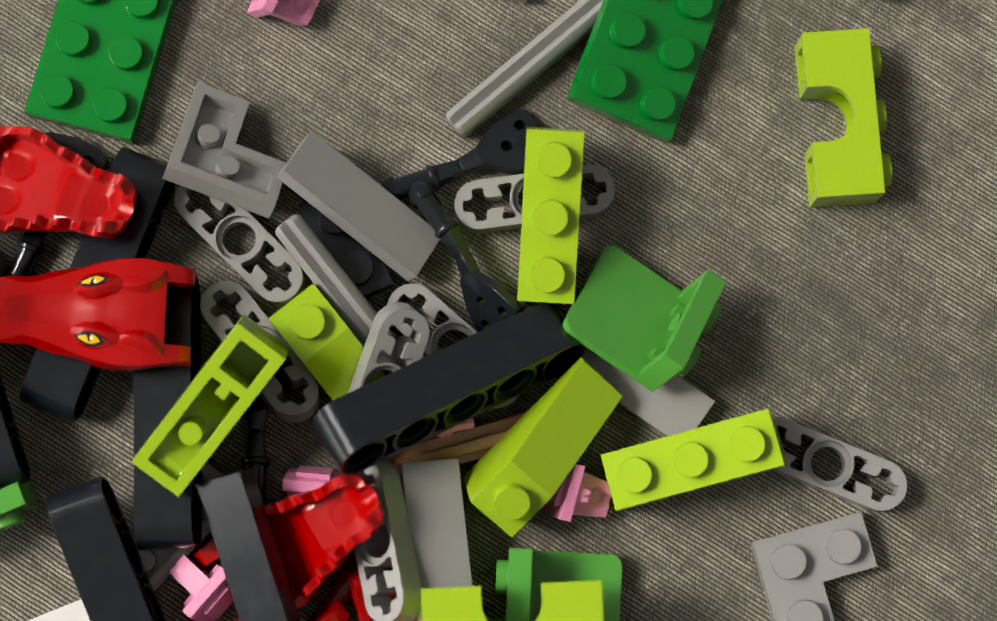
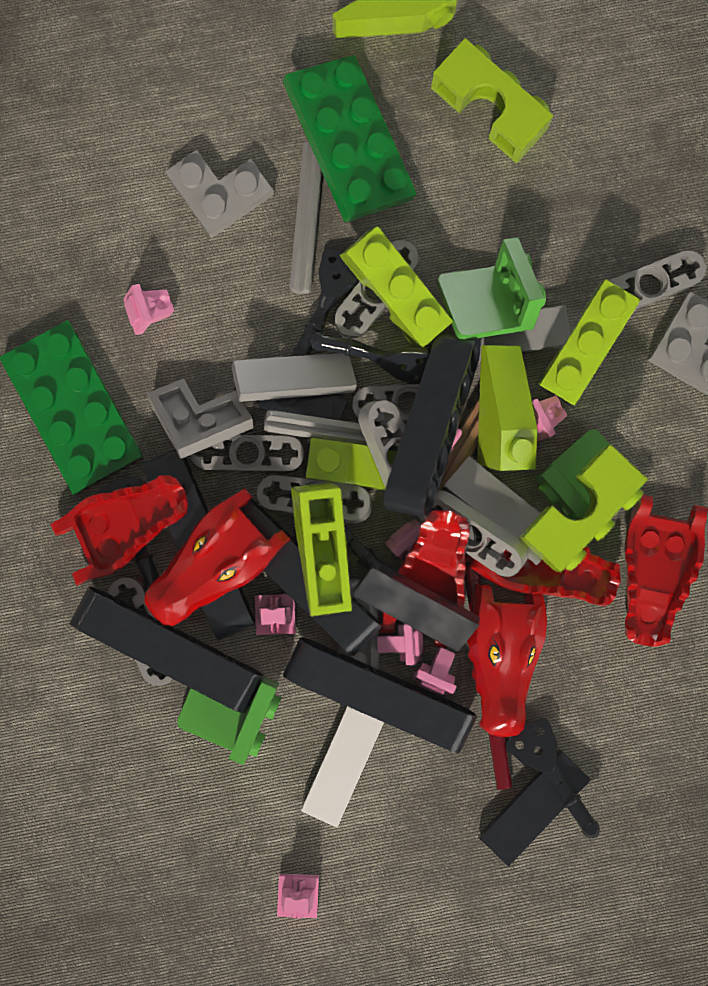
camera: 40 degrees left, 5 degrees up
(104, 431) = (275, 614): none -> bright pink brick

